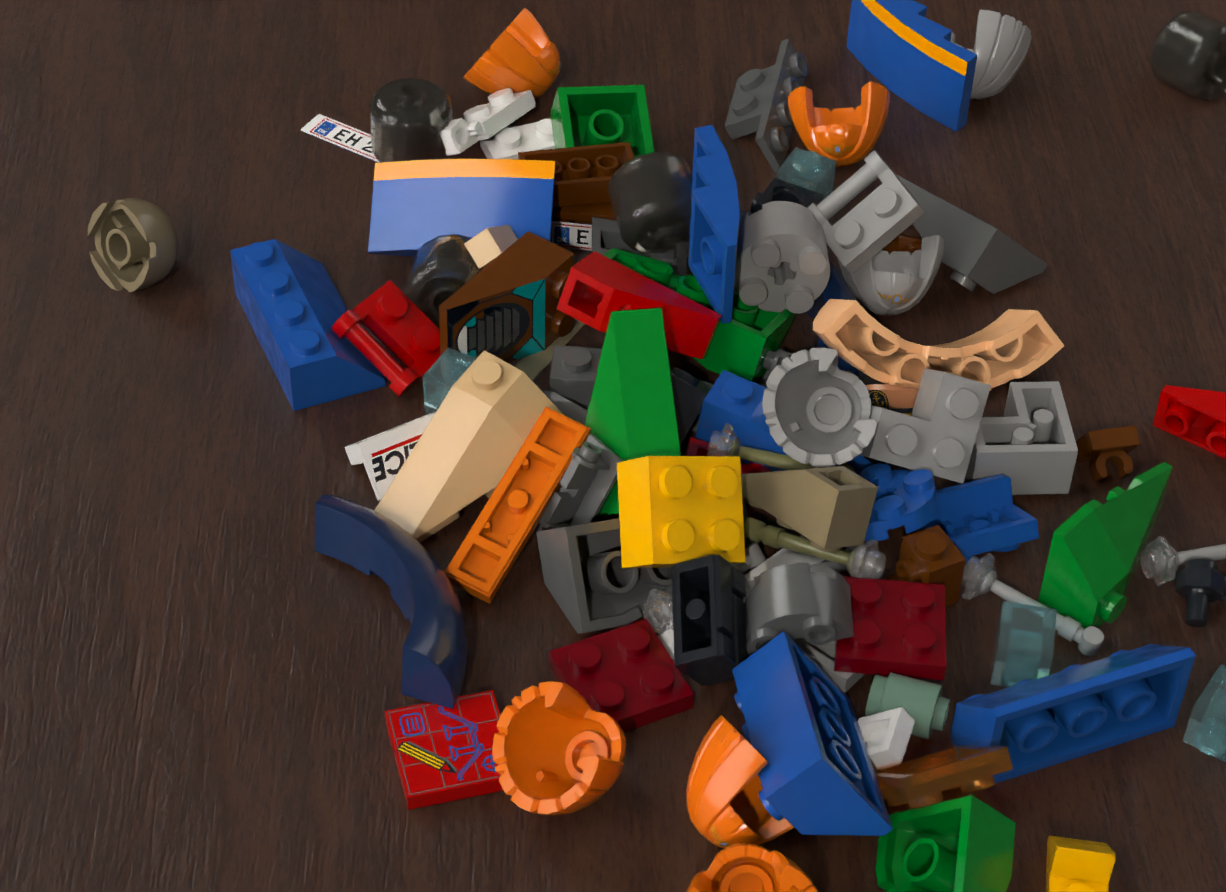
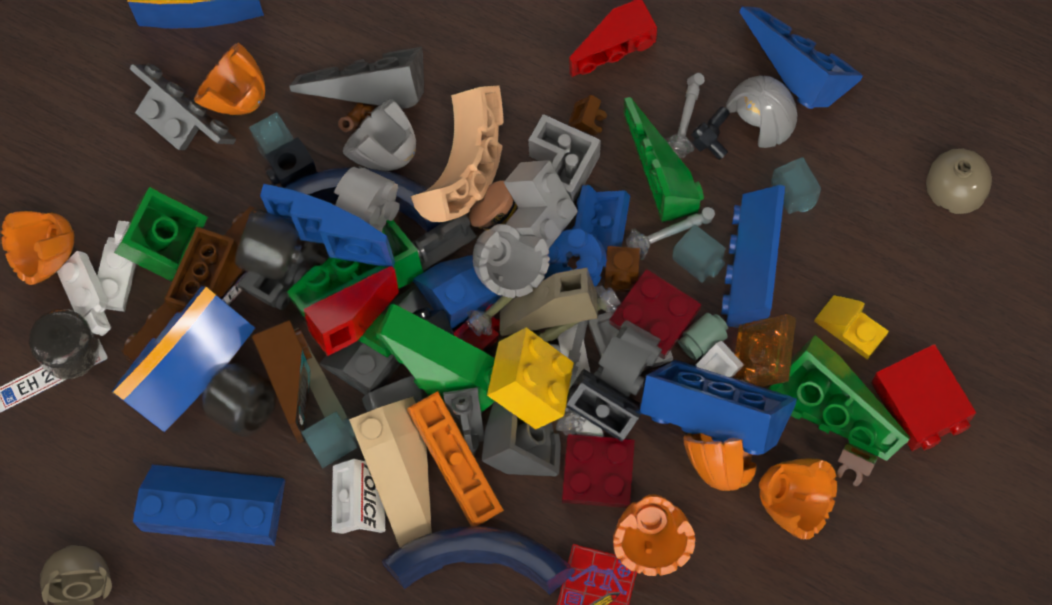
camera: 55 degrees left, 25 degrees up
(400, 328) = (261, 448): red plate -> none
(490, 244) = (242, 361): tan piece -> none
(872, 221) = (374, 135): light grey plate -> none

